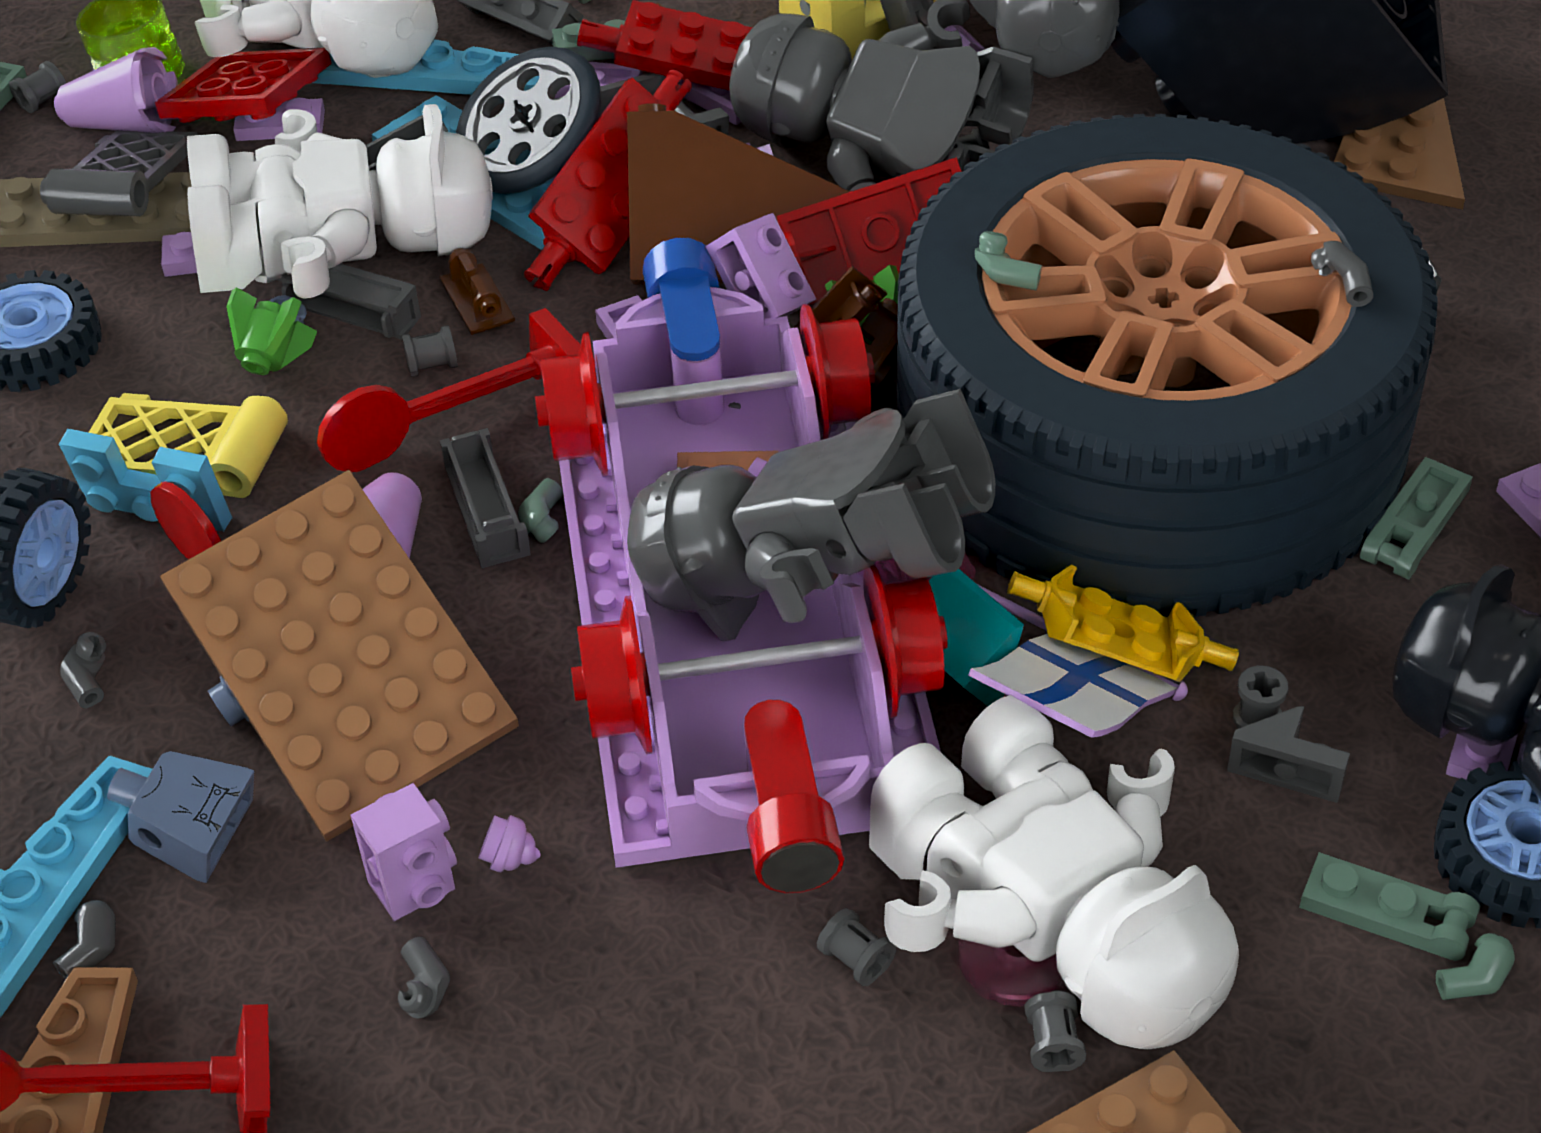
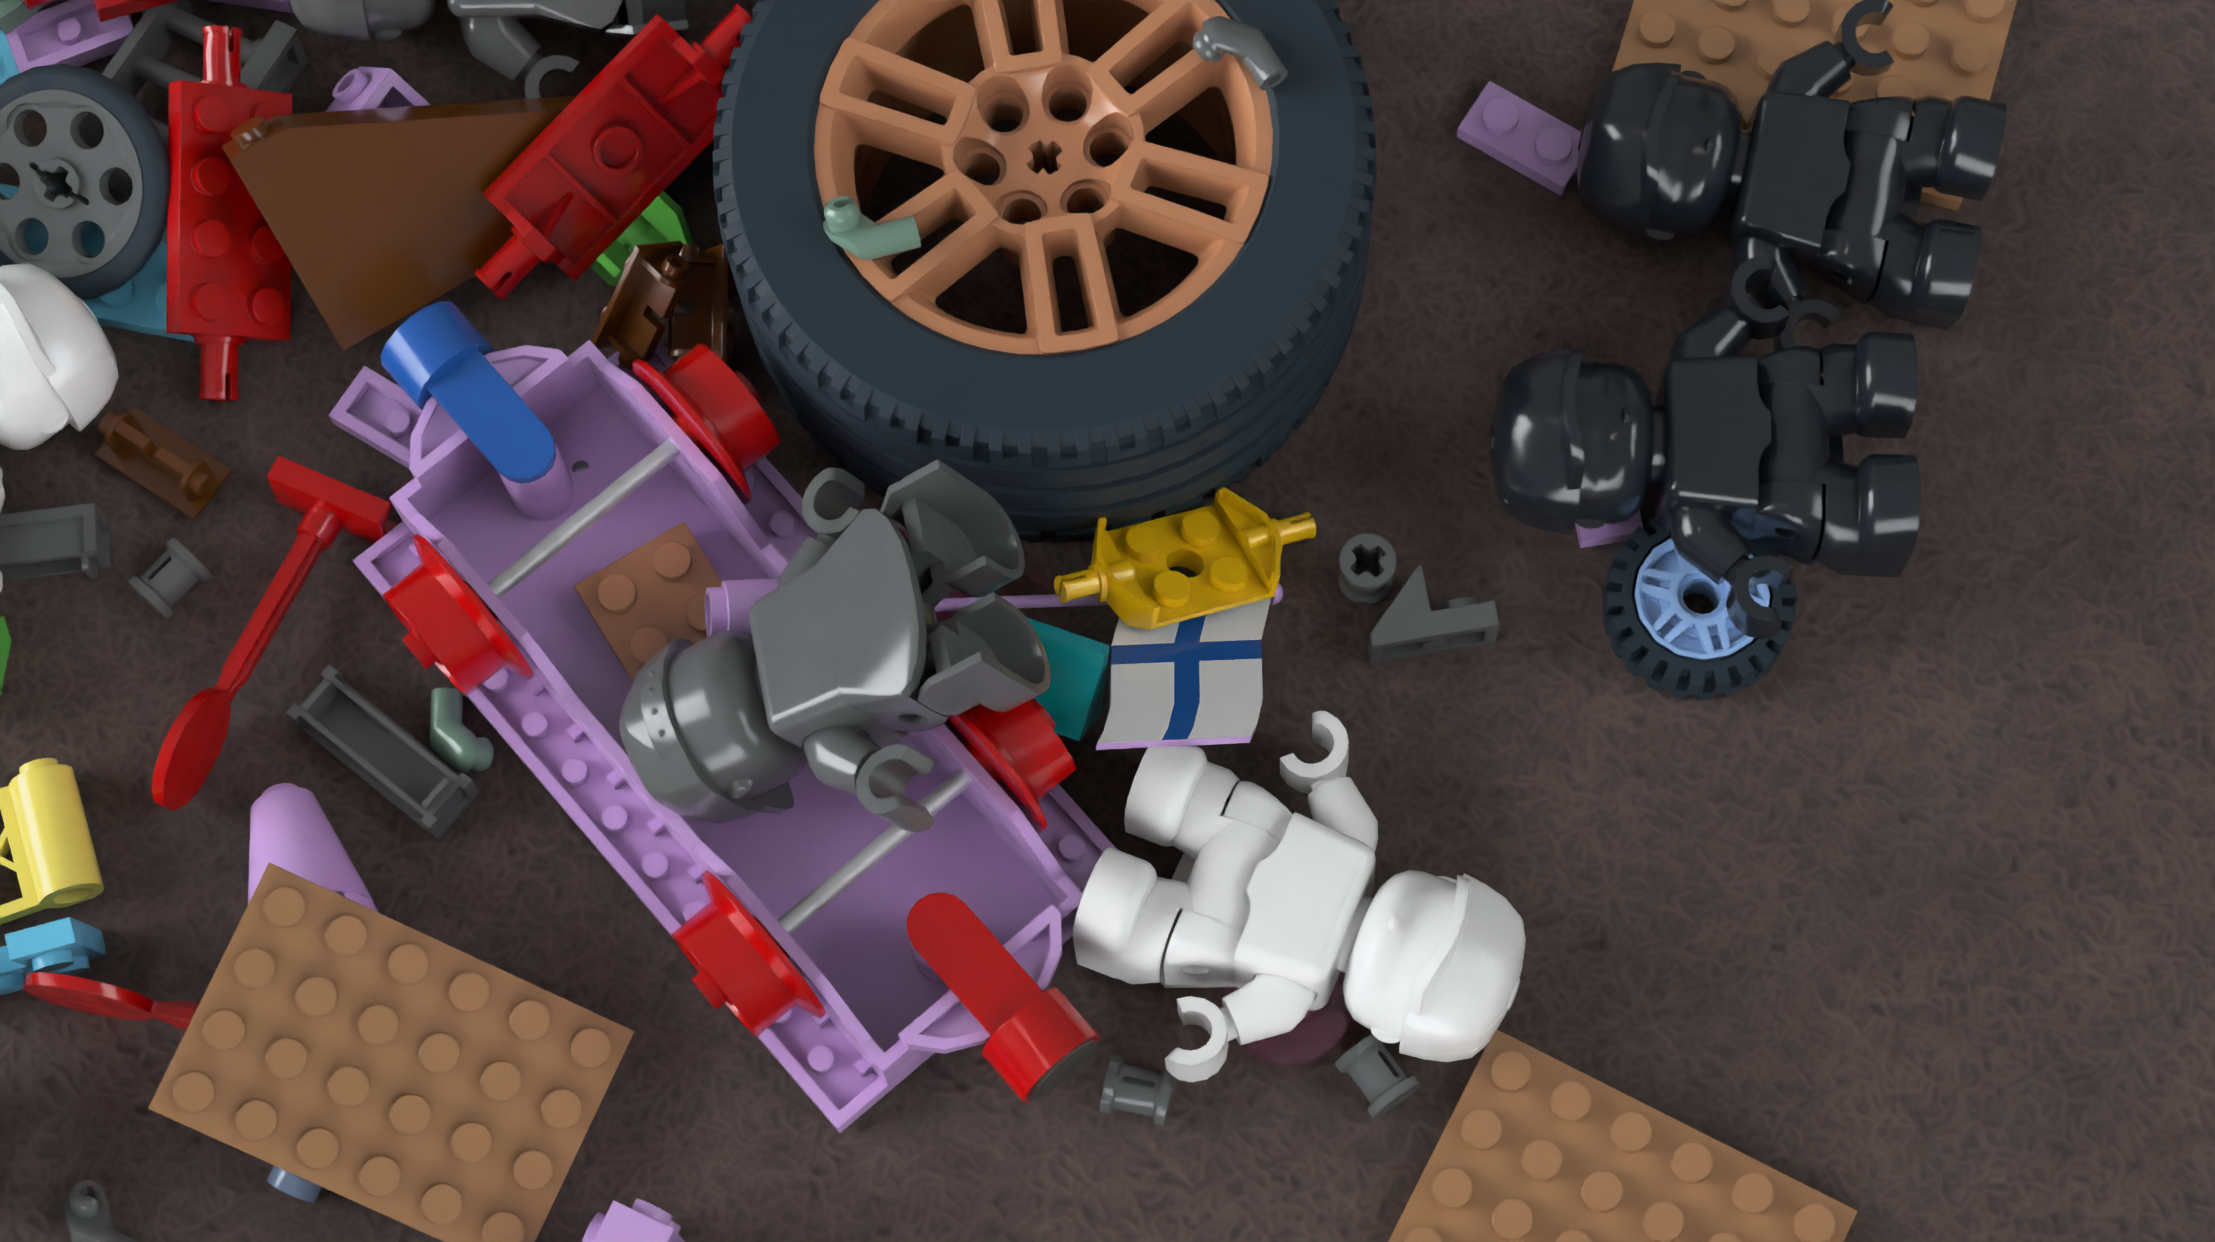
camera: 30 degrees left, 25 degrees up
(508, 845) = (716, 1176): lavender plate -> none
(762, 266) = (523, 293): lavender brick -> none
(1390, 906) = (1604, 745): sand green plate -> none
(1416, 517) = (1400, 227): sand green plate -> none
(1483, 974) = (1728, 772): sand green arm -> none

